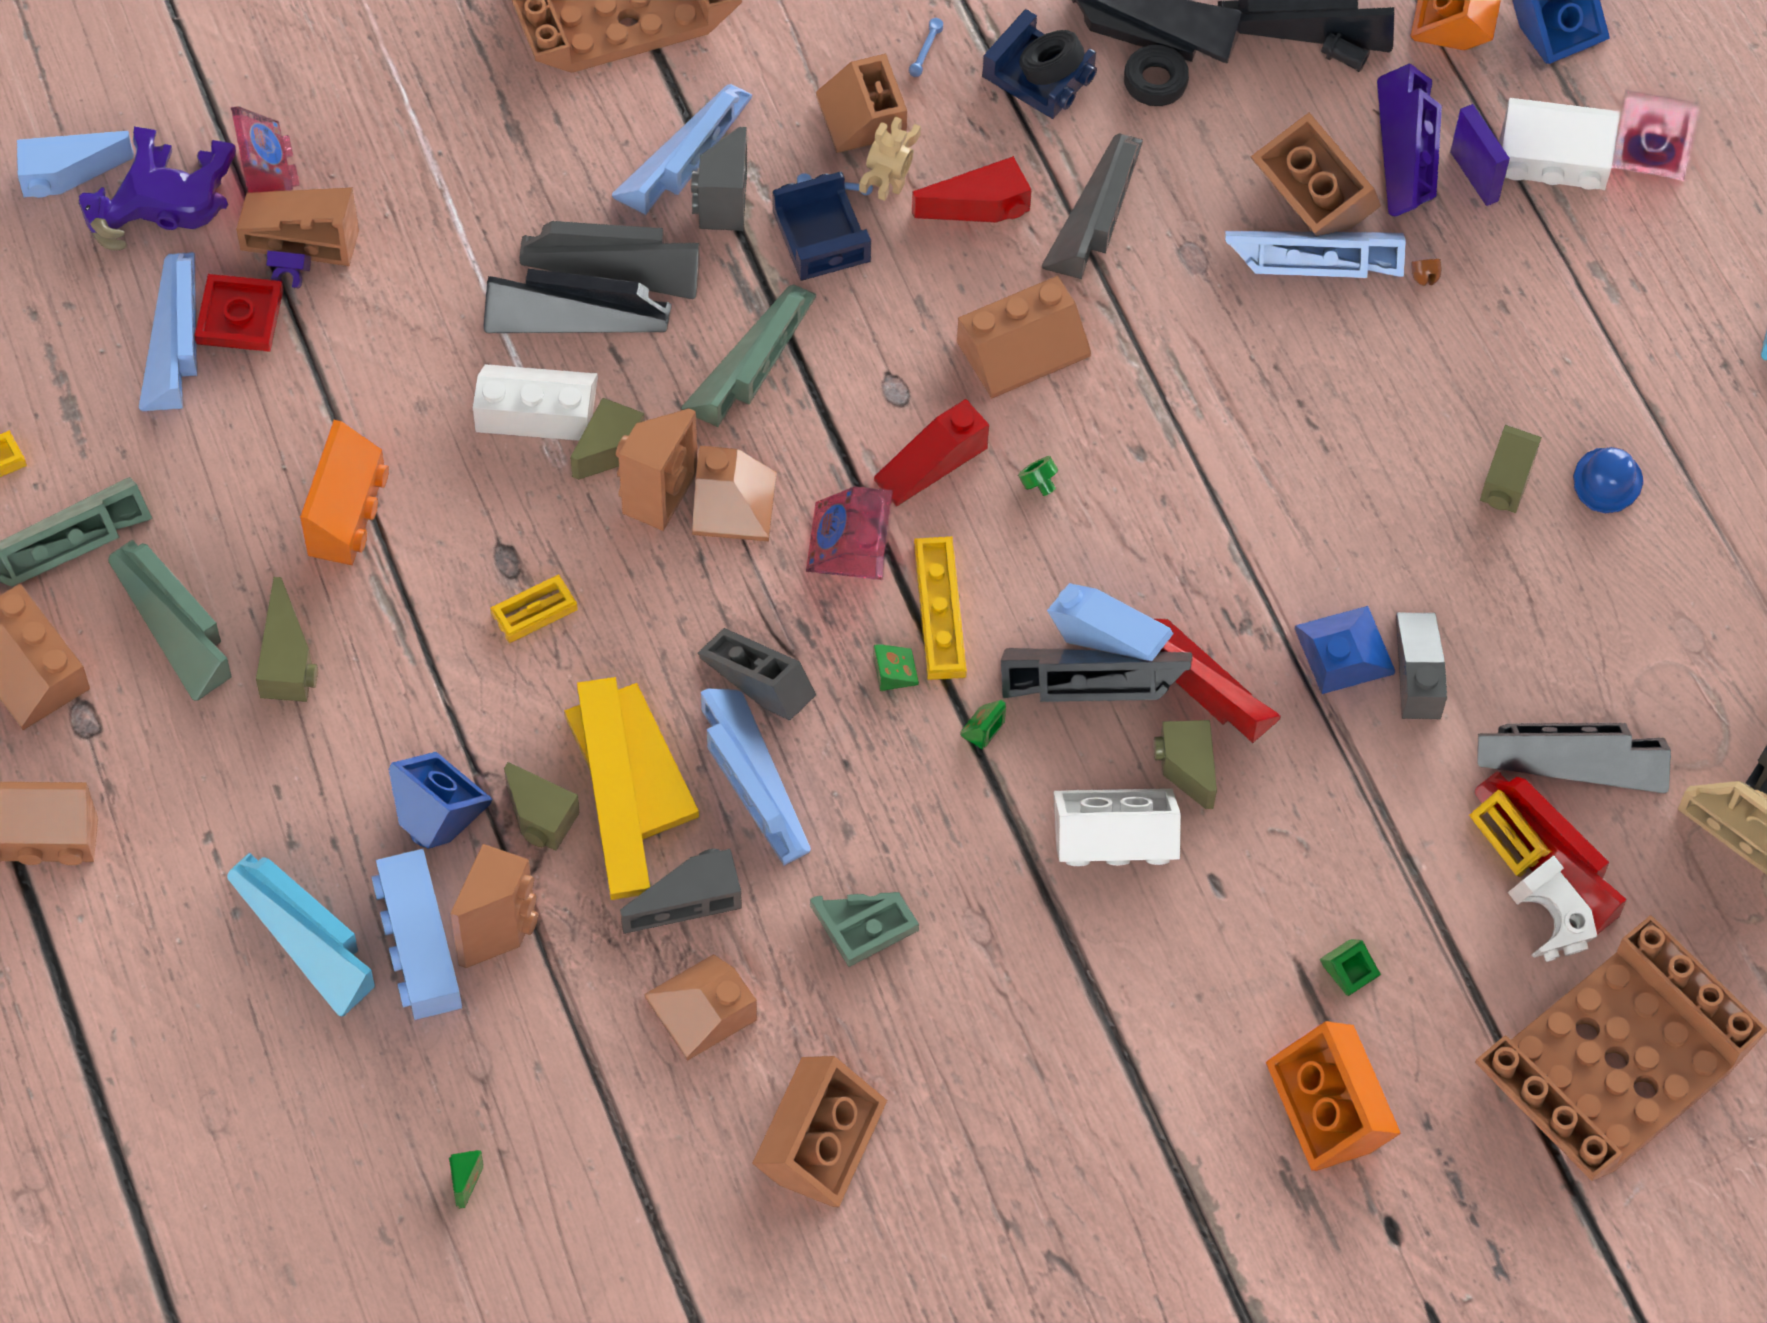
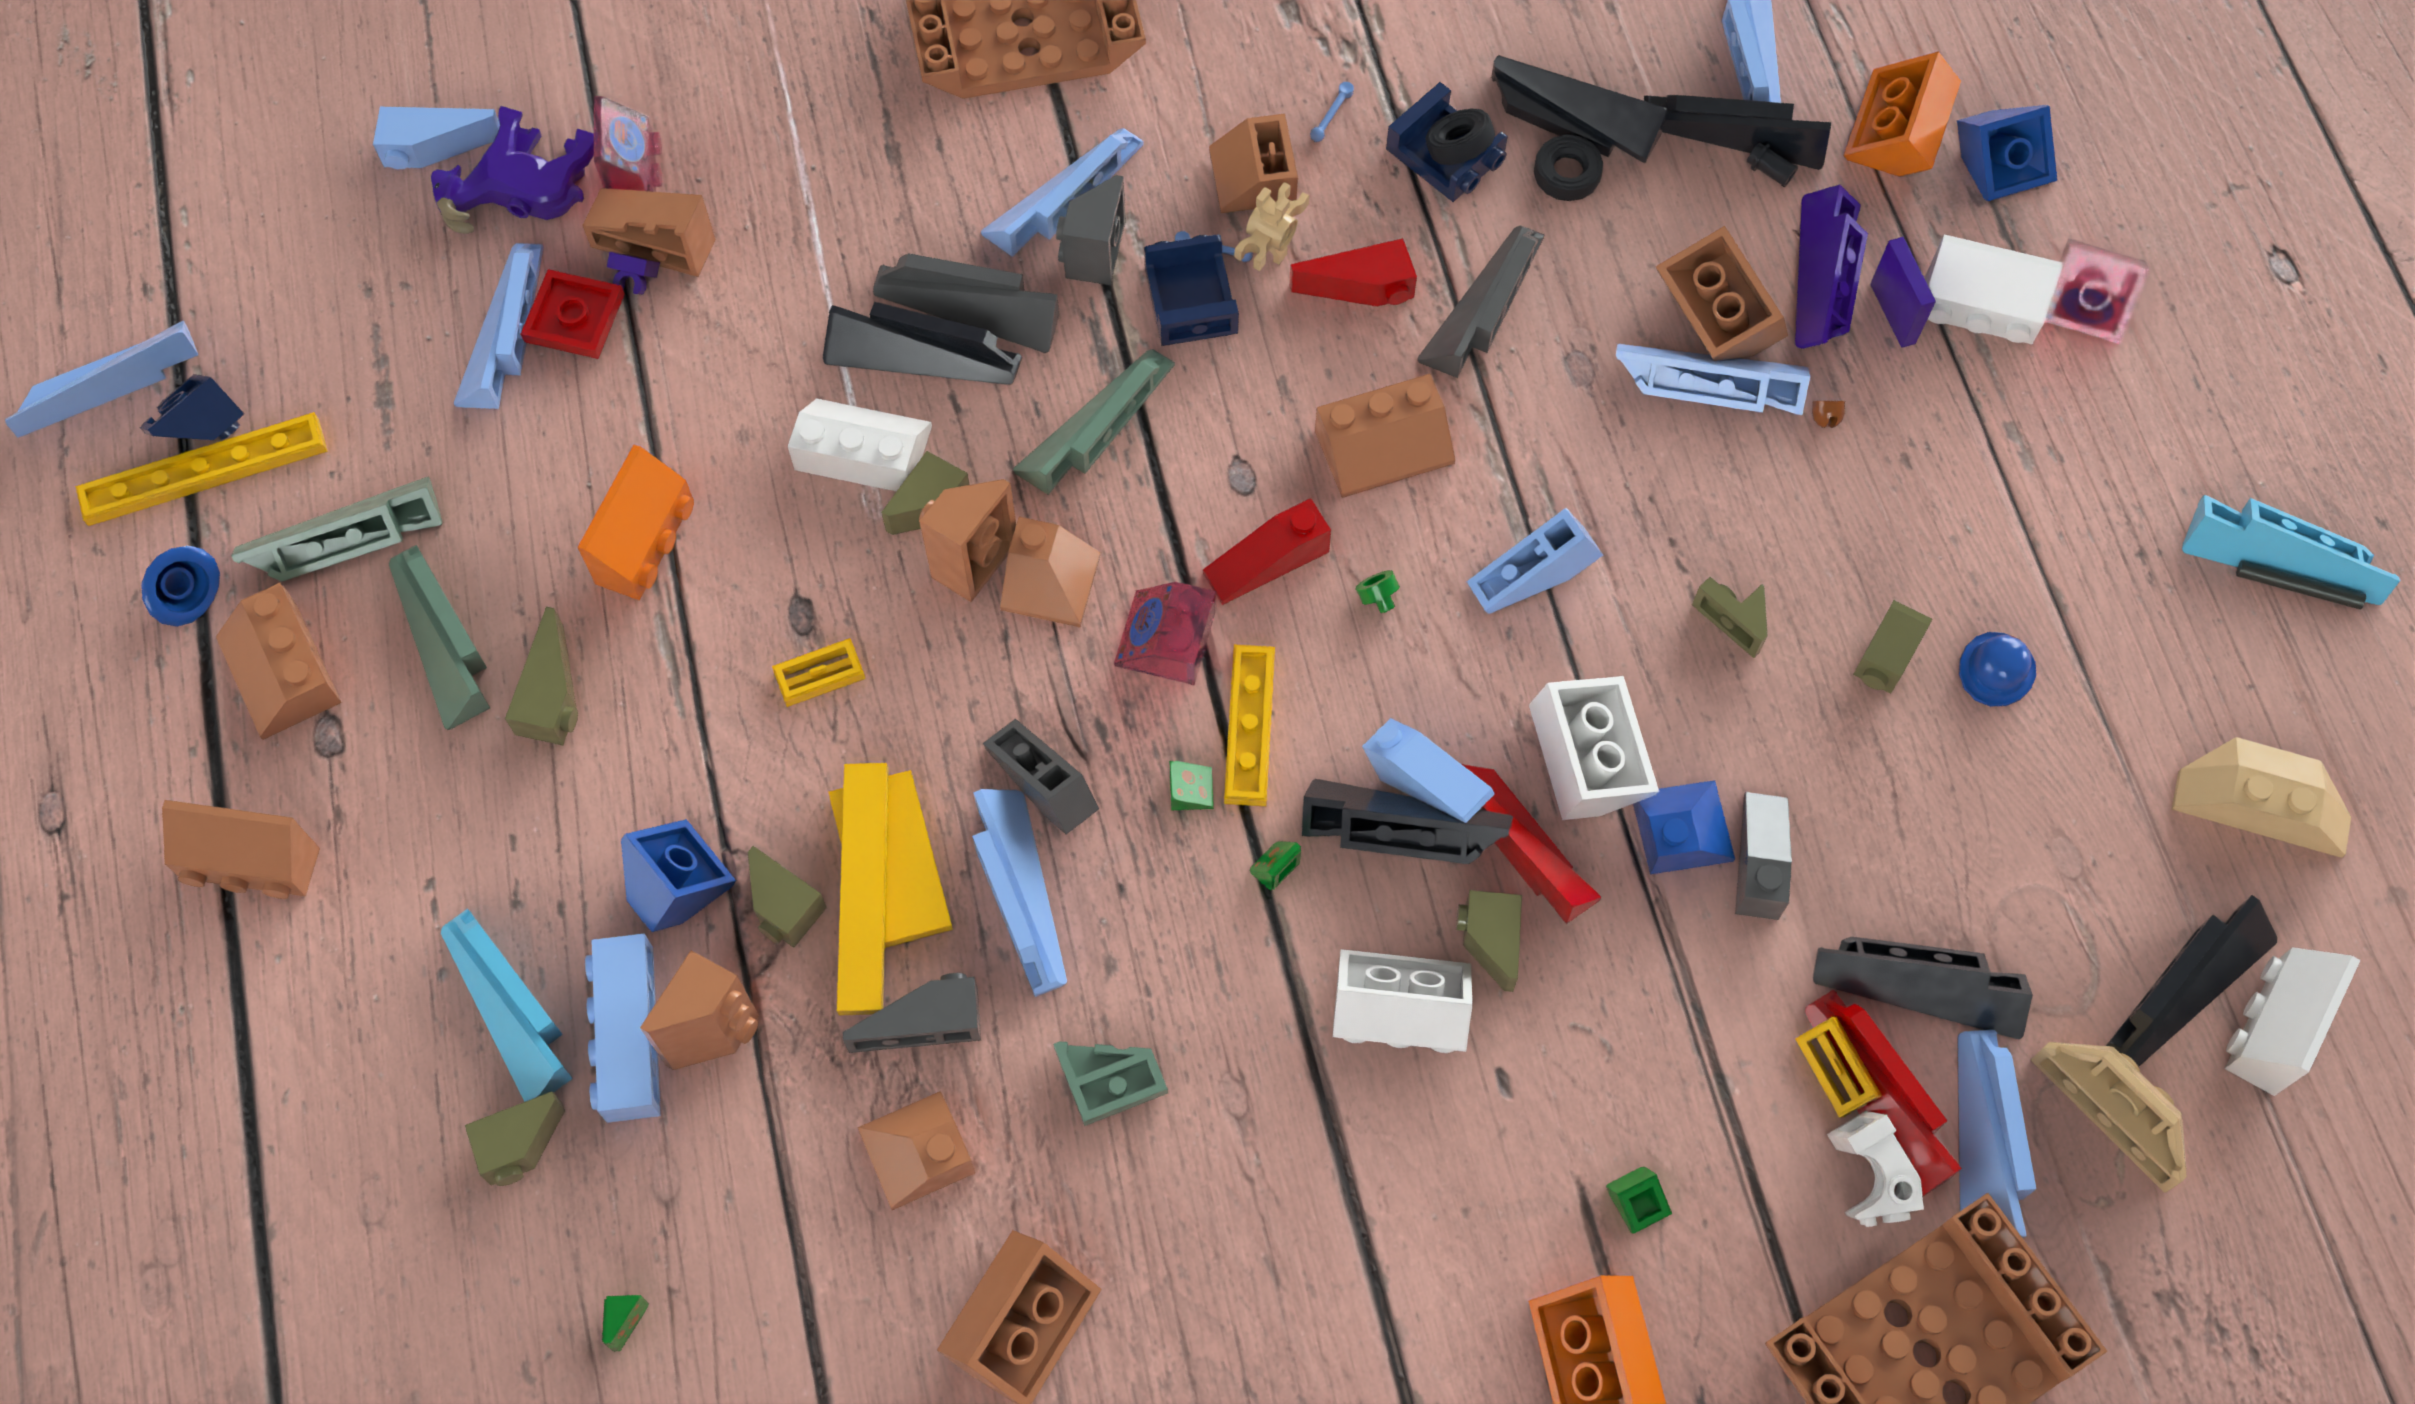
camera: 10 degrees right, 5 degrees up
(335, 1039) = (514, 1138): none -> olive slope
(1179, 434) = (1536, 563): none -> light blue slope
(1253, 587) = (1592, 746): none -> white slope
(1371, 464) = (1740, 621): none -> olive slope
(1649, 864) = (1991, 1127): none -> light blue wedge

